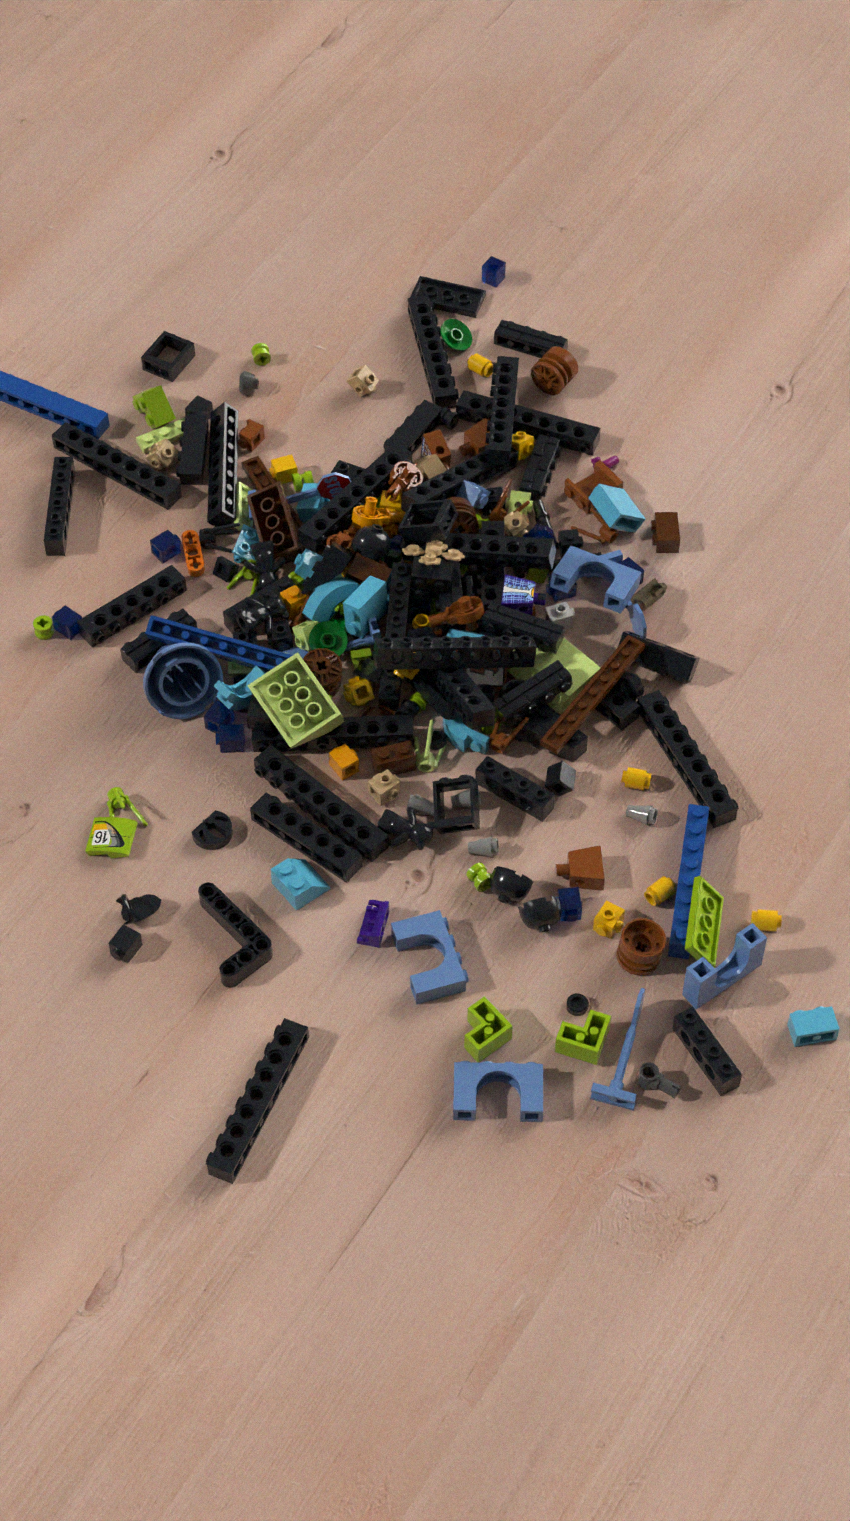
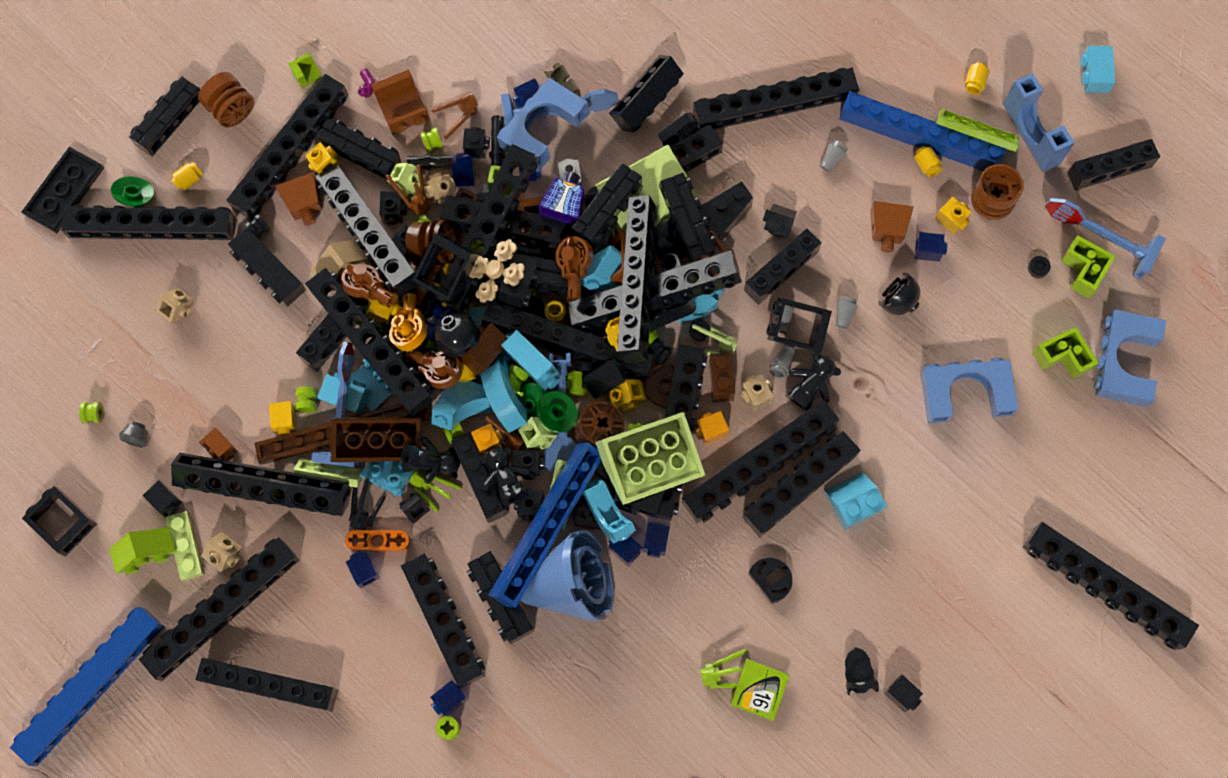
camera: 75 degrees left, 20 degrees up
(193, 450) = (224, 513): black brick -> none
(239, 931) = (906, 571): black beam -> none
(333, 563) = (473, 388): black slope -> none
(374, 923) = (919, 436): dark purple hinge -> none
(435, 444) = (309, 247): dark orange torso -> none
(474, 494) = (394, 219): medium blue brick -> none
(480, 877) = (882, 322): lime wheel -> none
(493, 271) = (45, 130): clear blue brick -> none
(502, 412) = (213, 142): black brick -> none
(541, 913) = (938, 274): black cylinder -> none
(564, 515) = (431, 139): none -> lime wheel
(592, 694) = (699, 161): reddish brown plate -> none
(603, 417) = (305, 70): none -> lime panel
(616, 508) = (442, 84): medium azure brick -> none
(636, 778) = (791, 151): yellow brick -> none
(657, 1081) = (1138, 215): dark grey pin -> none
(666, 532) = (482, 47): reddish brown brick -> none

